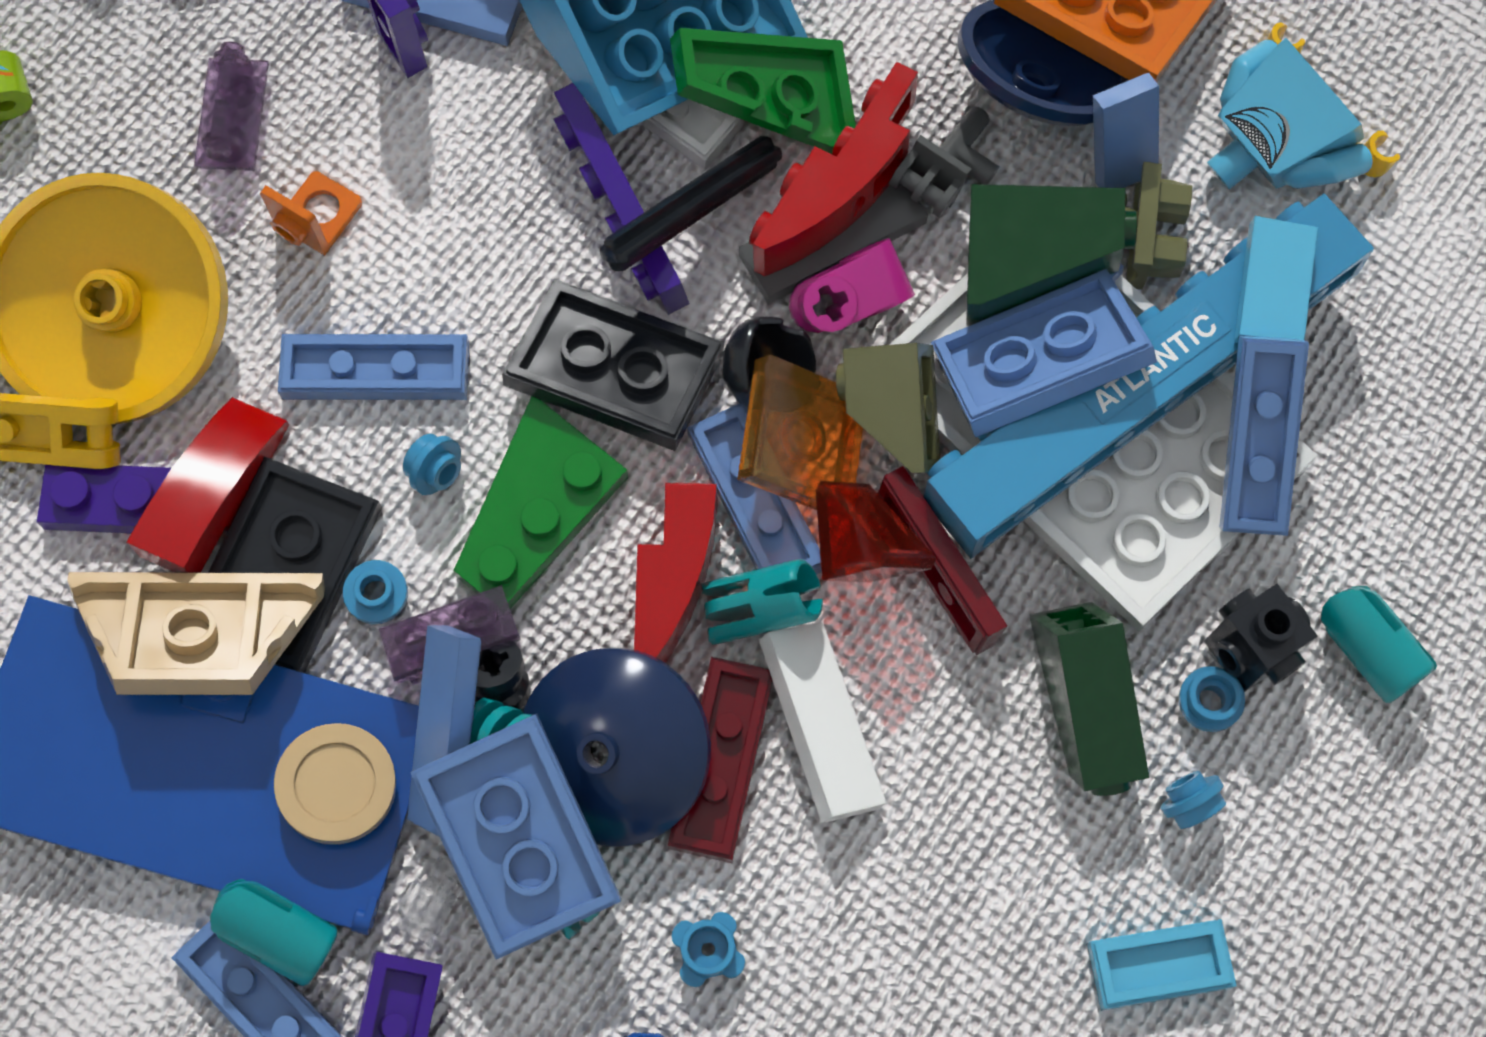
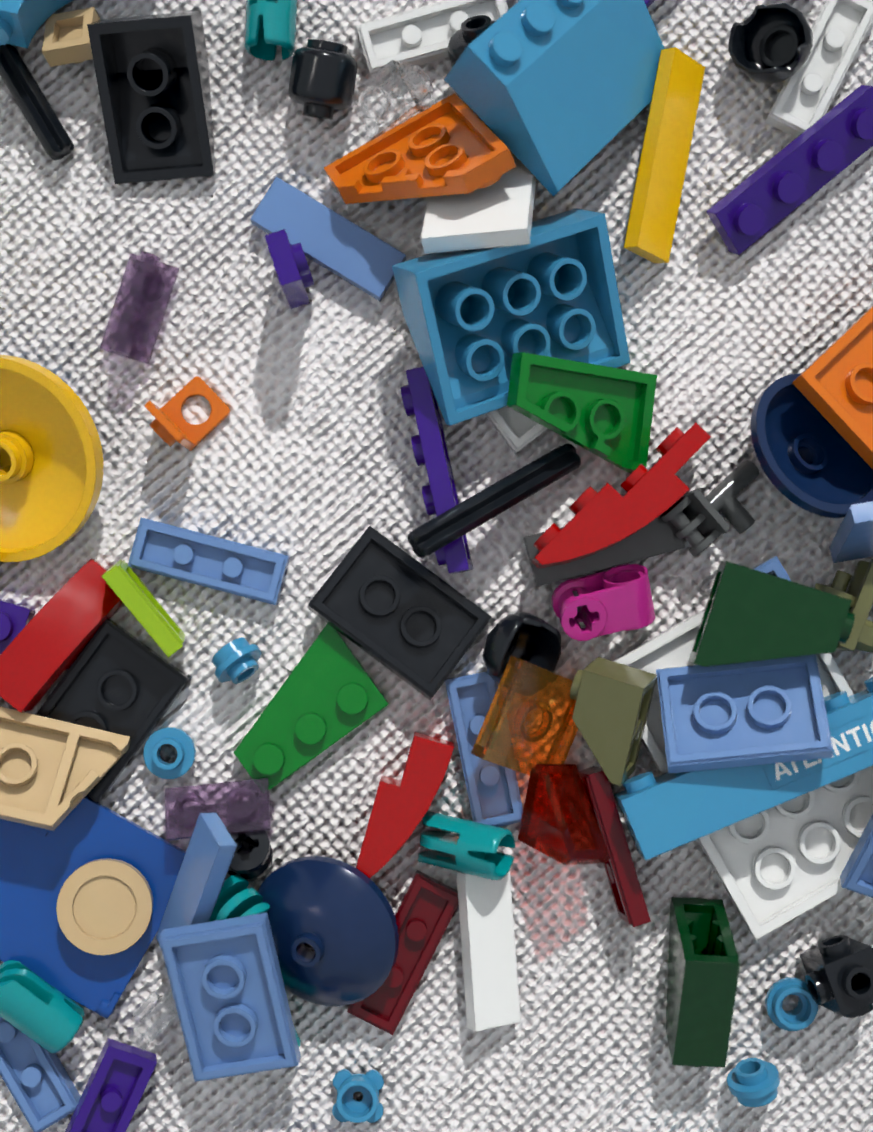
camera: 10 degrees right, 15 degrees up
(308, 423) = (144, 607): none -> lime tile

